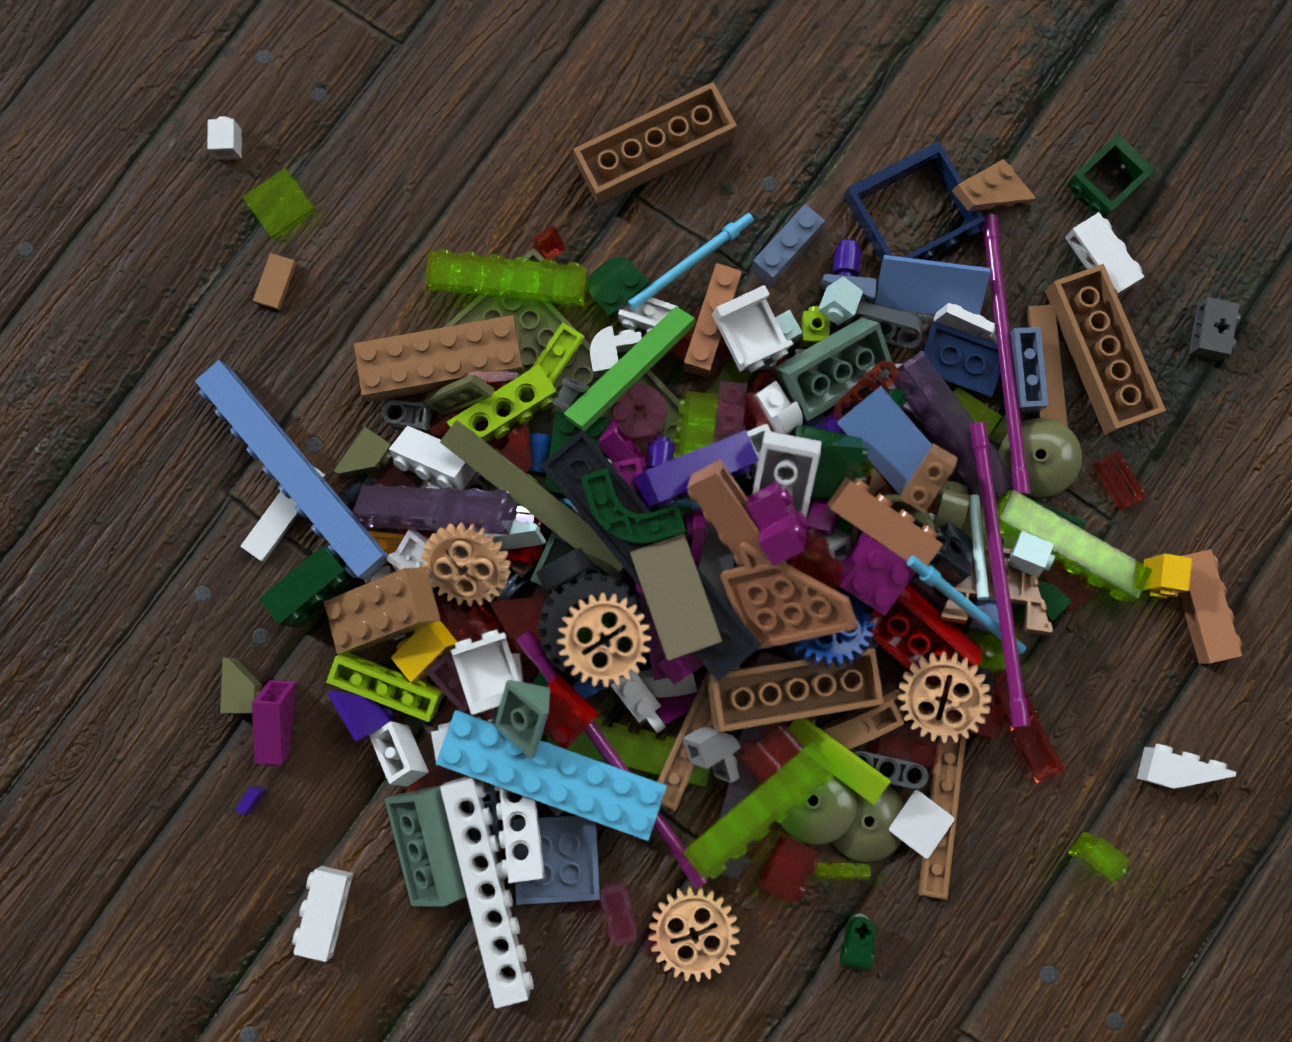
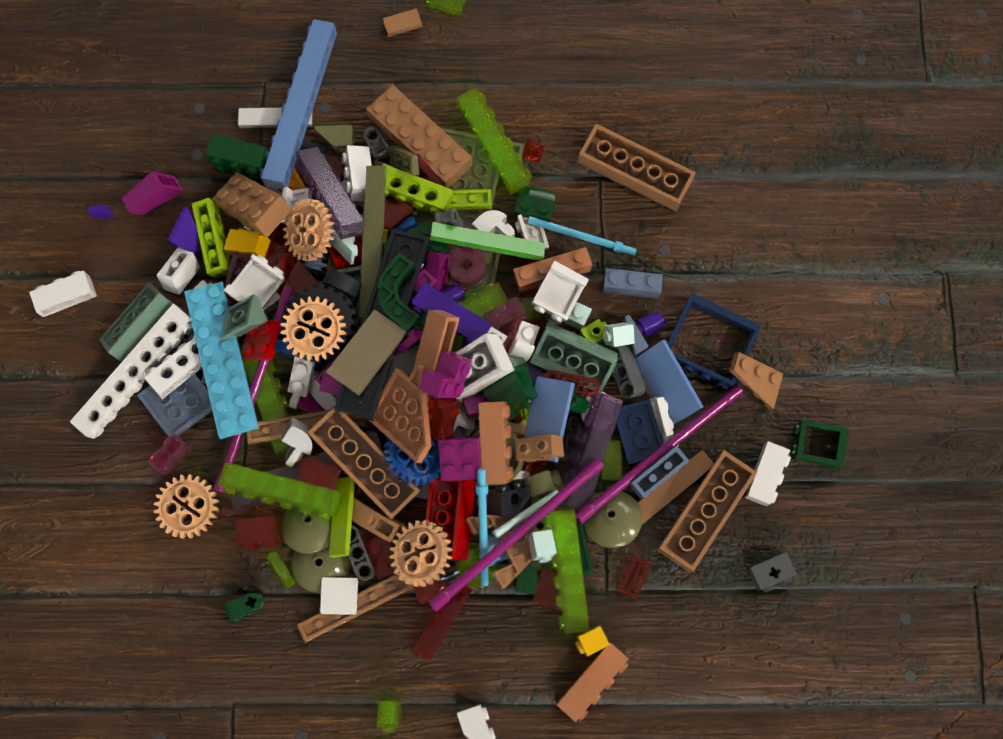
camera: 50 degrees right, 5 degrees down
(237, 687) = (158, 160): olive slope -> none

